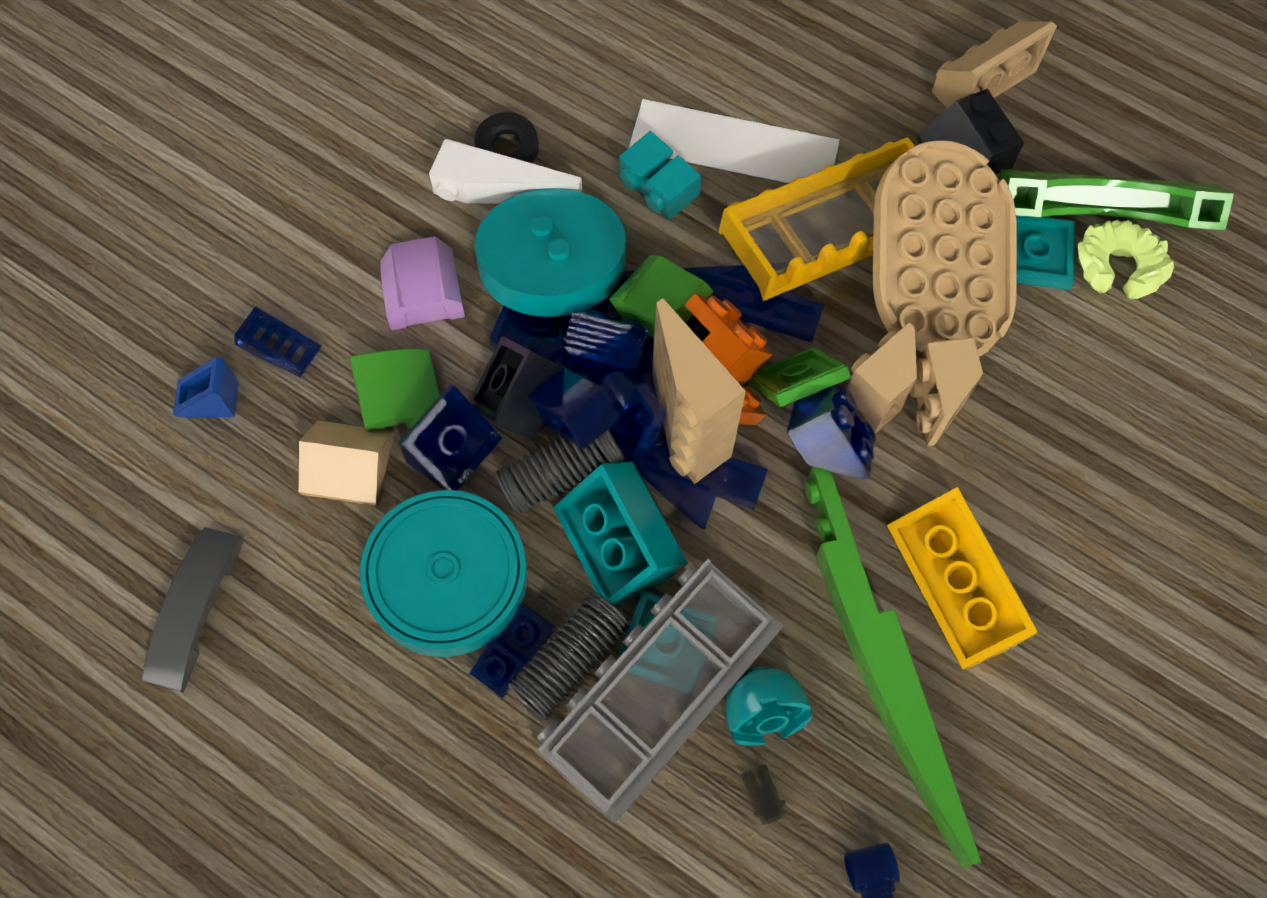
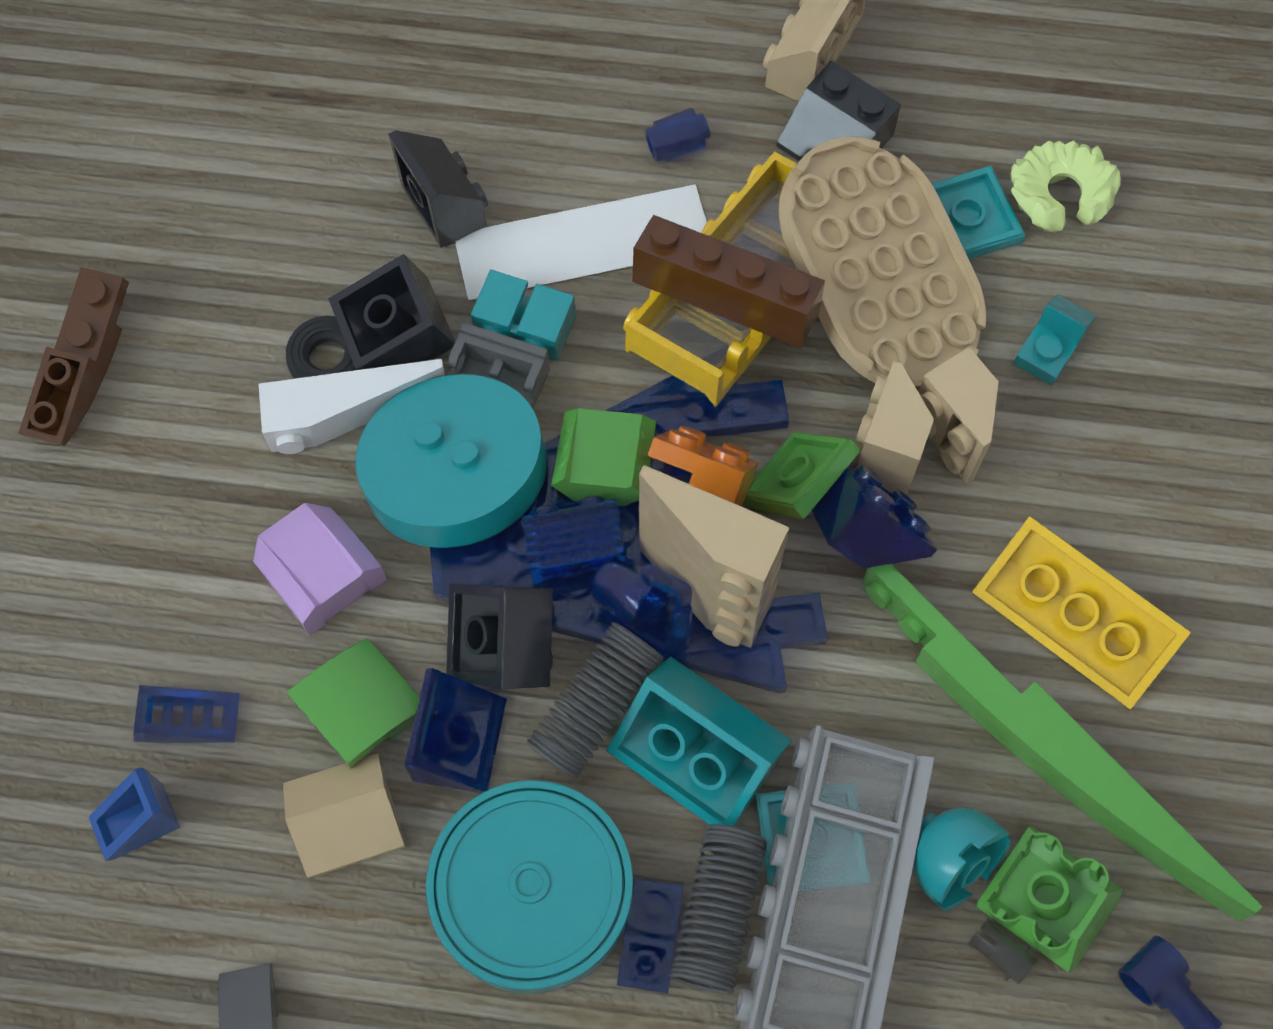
camera: 25 degrees left, 0 degrees up
(333, 75) = (79, 362): none -> reddish brown slope
(564, 134) = (392, 317): none -> black slope
(575, 407) = (586, 628): clear blue brick -> none
(630, 202) = (502, 359): none -> dark grey hinge
(647, 57) = (438, 186): none -> black slope
(814, 209) = (727, 280): none -> reddish brown brick
(822, 775) = (1051, 898): none -> bright green slope
(843, 97) = (677, 135): none -> clear blue brick
(1054, 370) = (1054, 339): none -> teal slope
(1153, 200) = (1073, 103): bright green arch -> none

